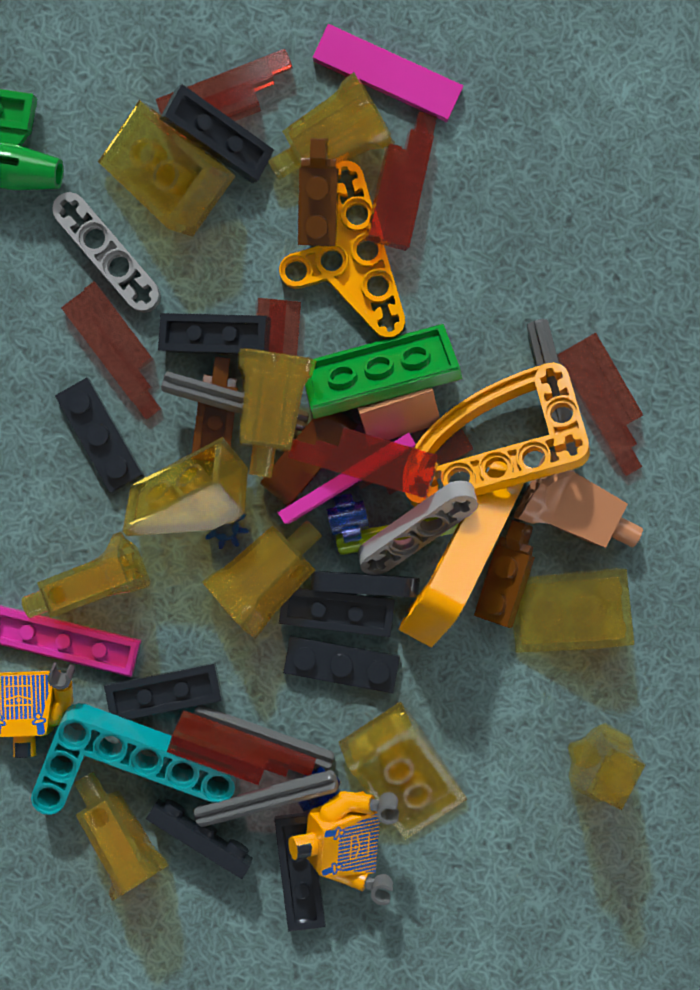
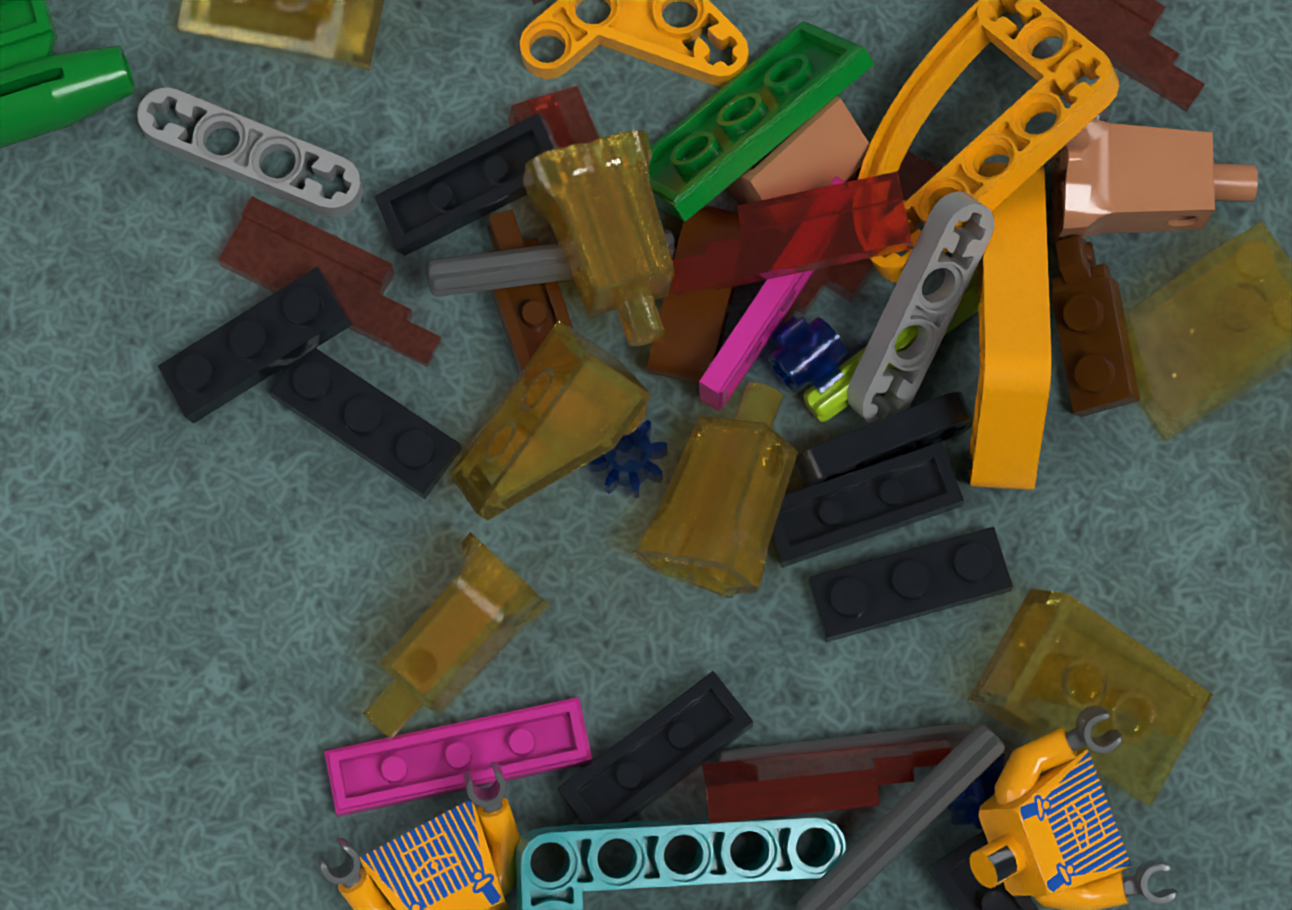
camera: 20 degrees left, 15 degrees down
(58, 366) = (255, 345): none -> black plate

